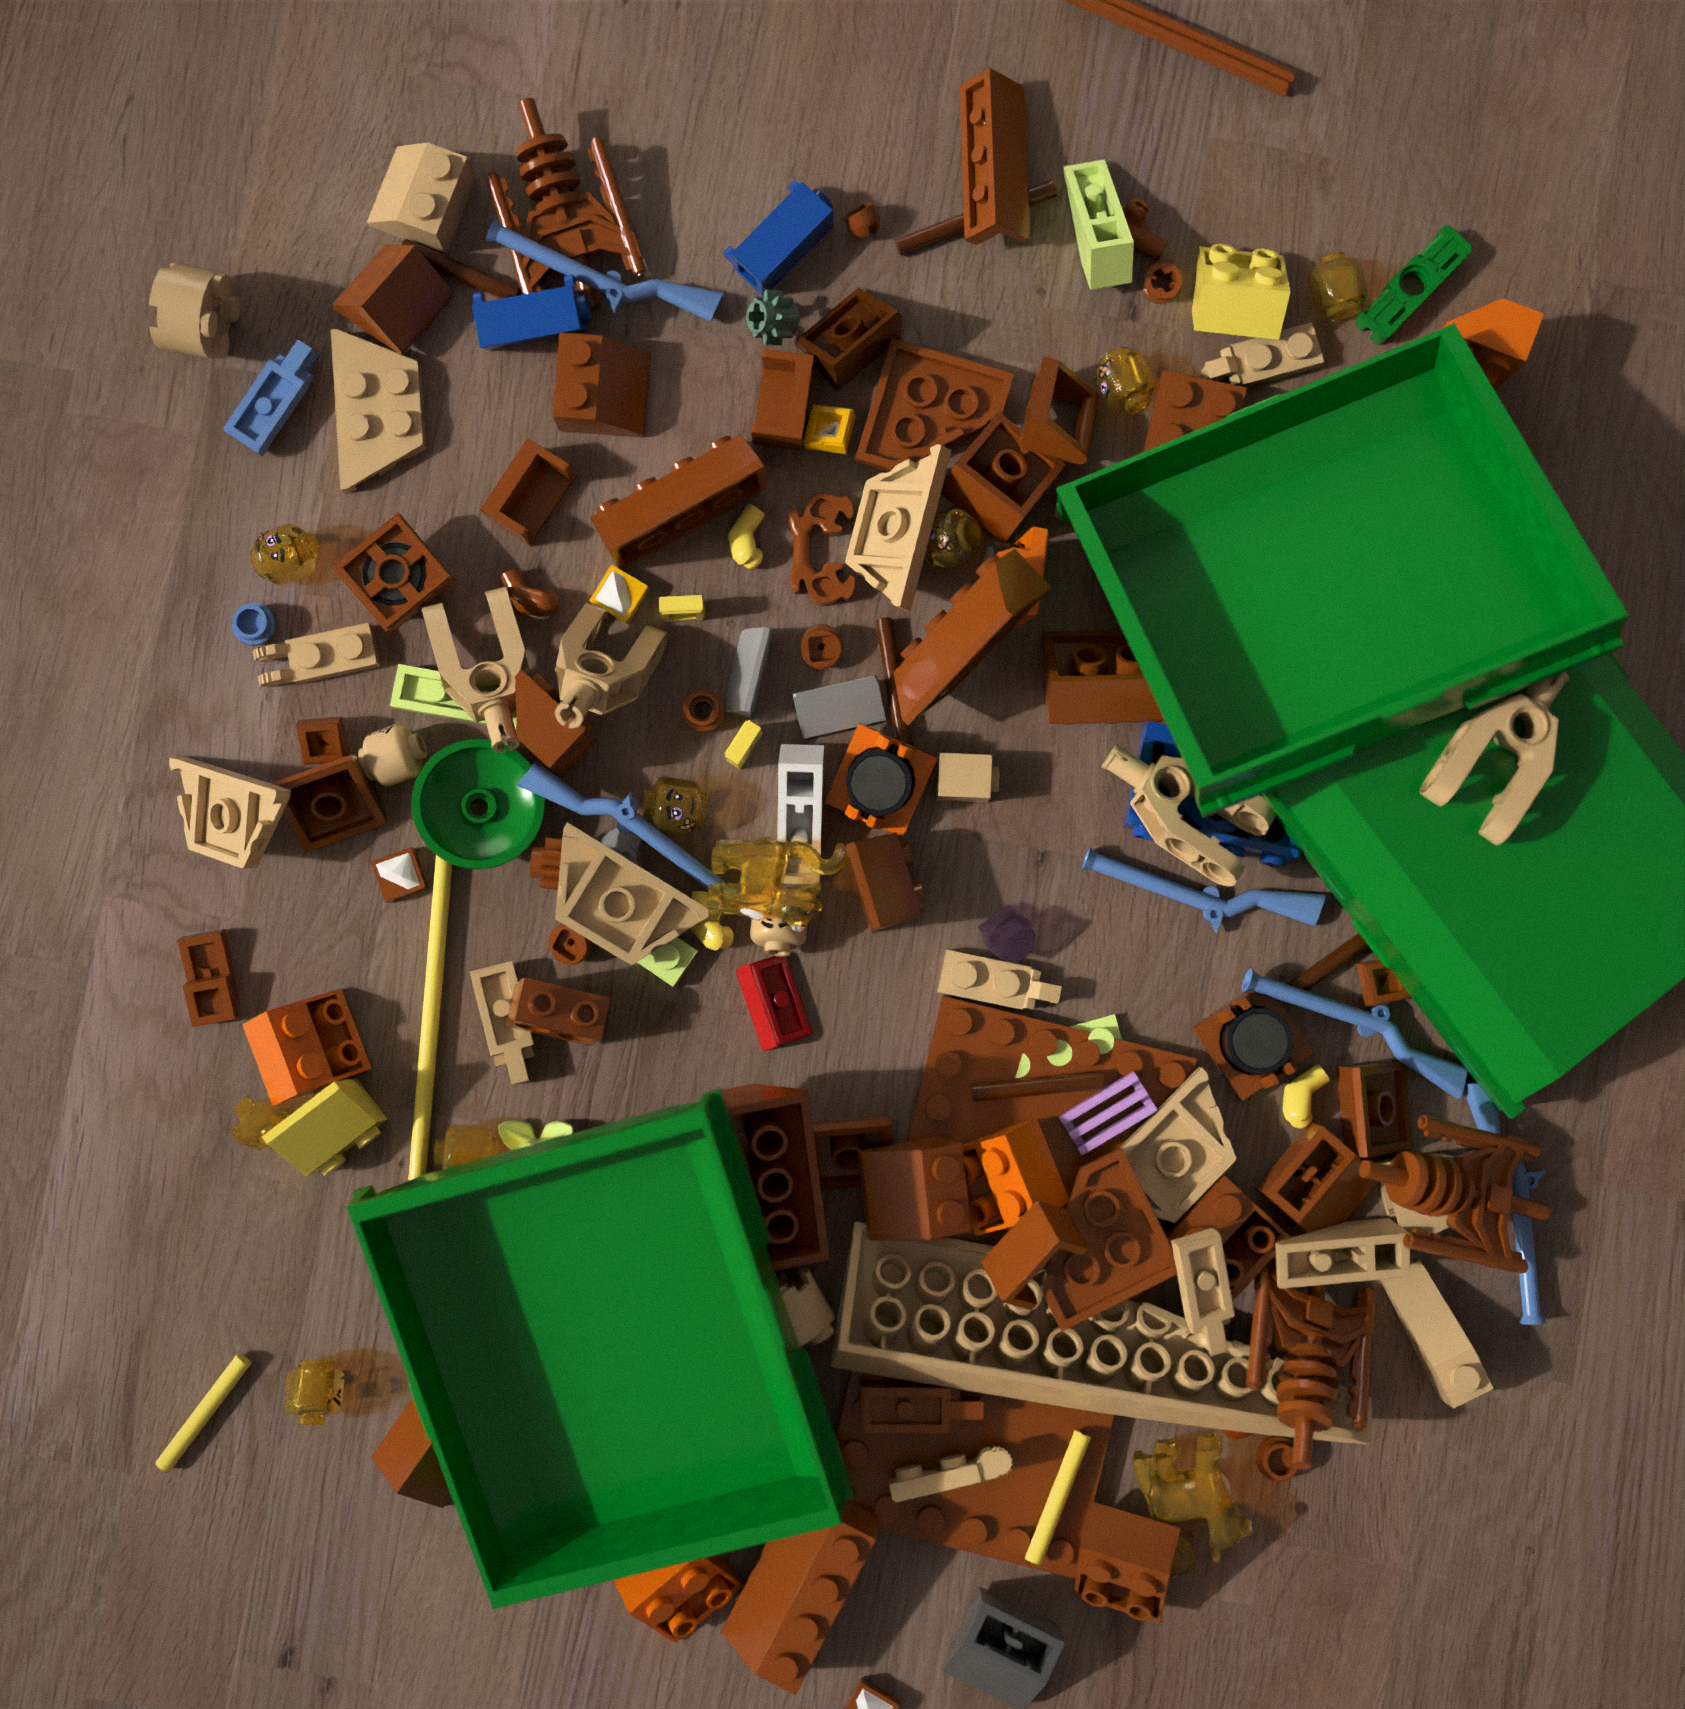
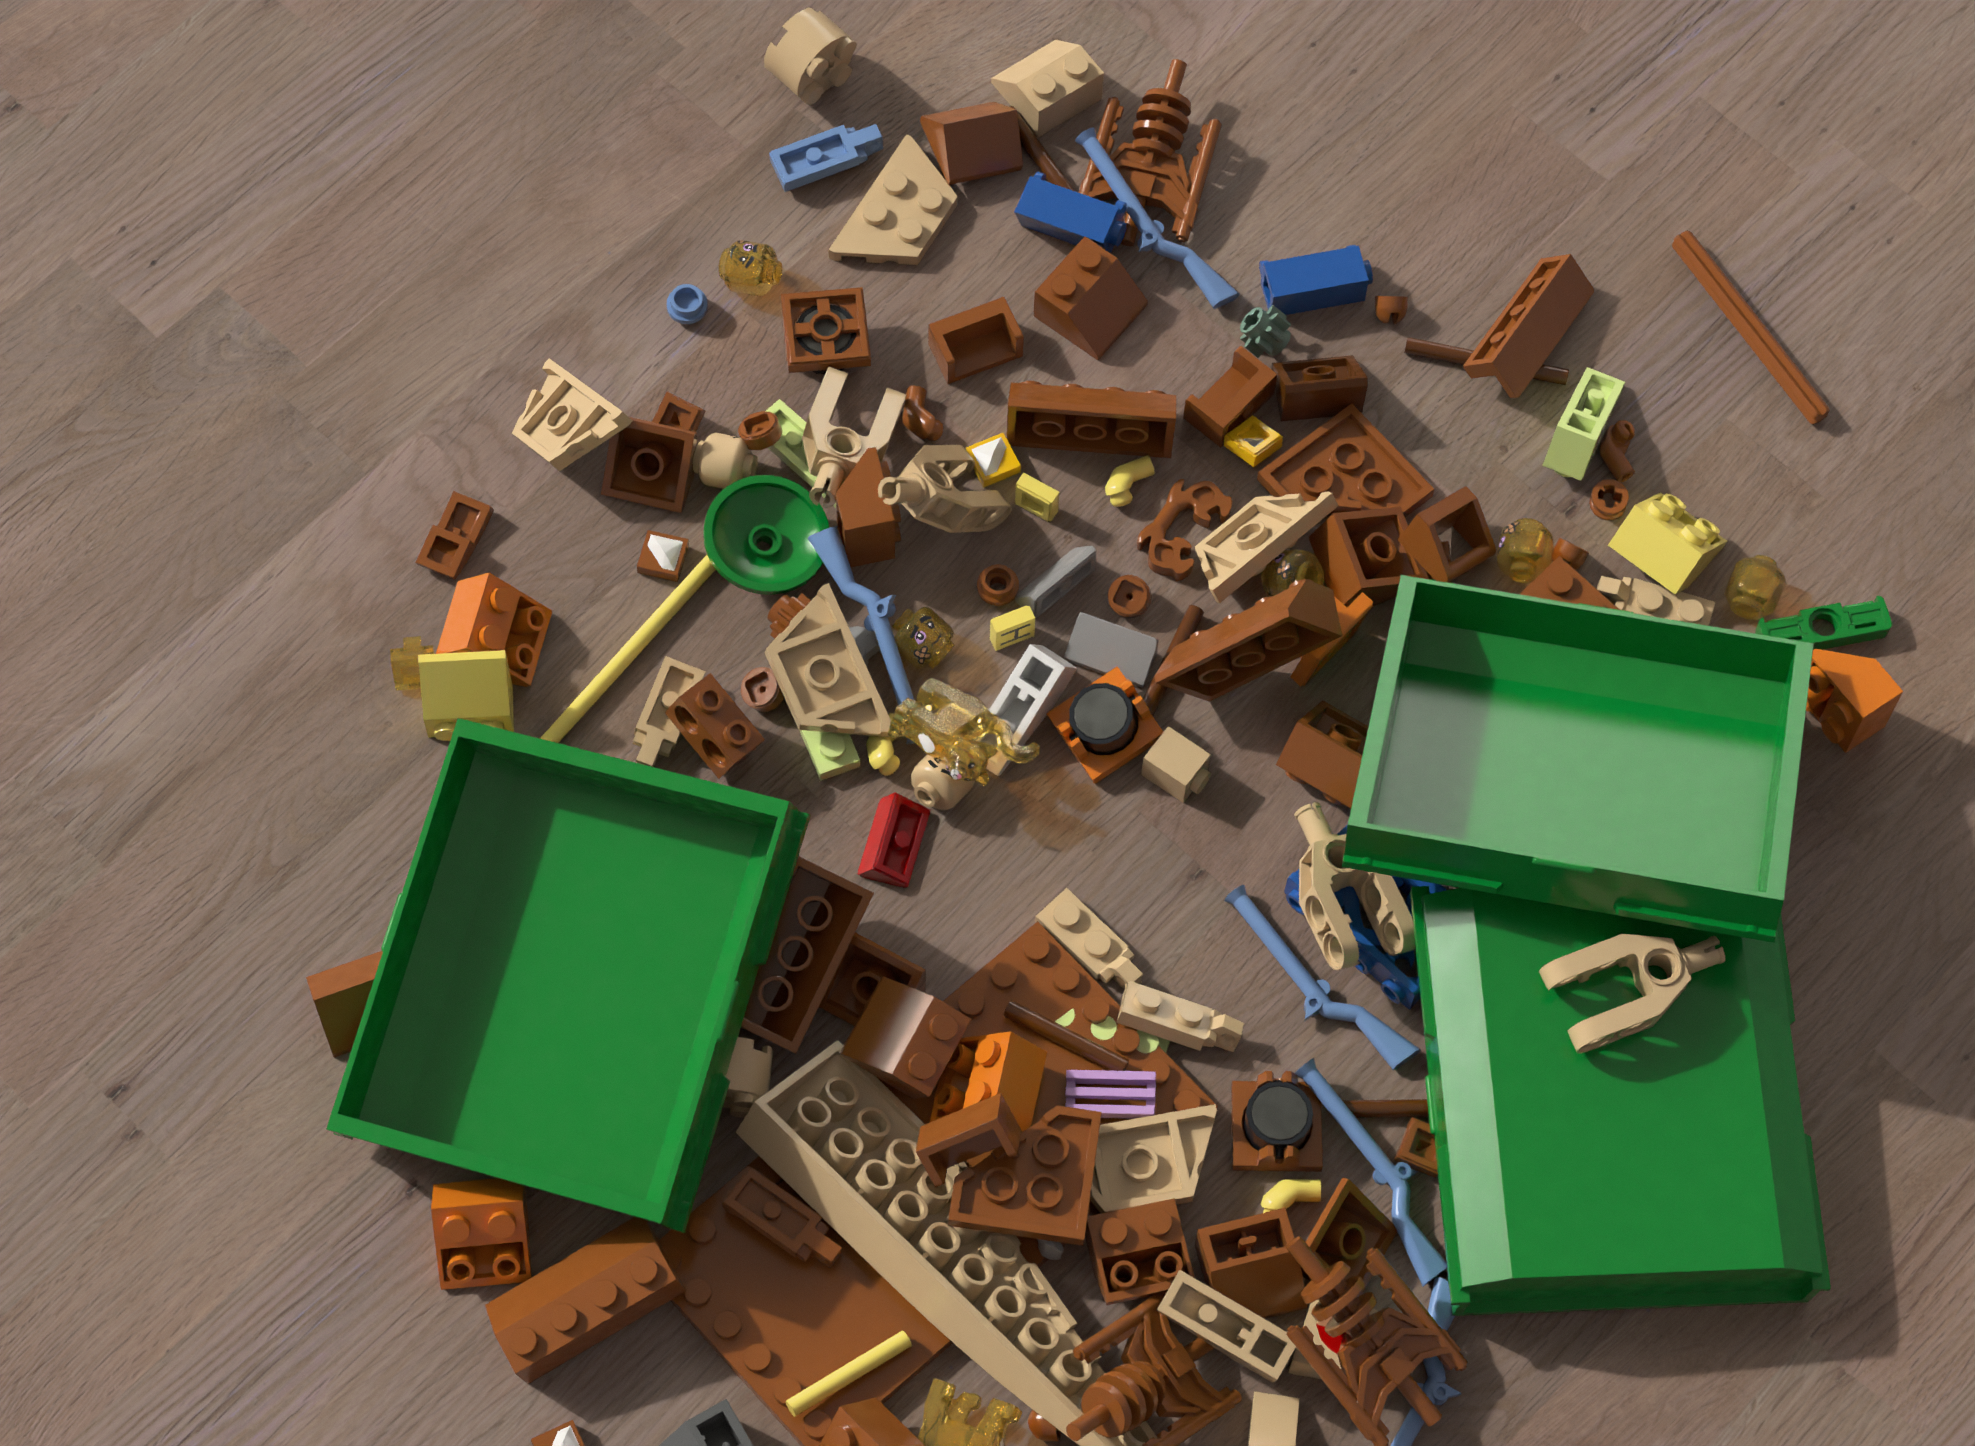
camera: 30 degrees right, 20 degrees down
(203, 1413) = (199, 856): light yellow bar -> none
(313, 1391) = (302, 891): clear yellow head -> none
(321, 655) = (720, 359): tan hinge -> none
(404, 710) = (760, 430): none -> dark orange tile
(884, 881) = (1051, 797): dark orange slope -> none
(952, 1473) = (771, 1290): tan hinge -> none
(1008, 934) = (1126, 906): clear purple piece -> none
(1113, 1006) = (1177, 1019): none -> tan hinge
(1163, 357) = (1569, 552): none -> dark orange hinge
(1204, 1287) = (1092, 1264): tan hinge -> none

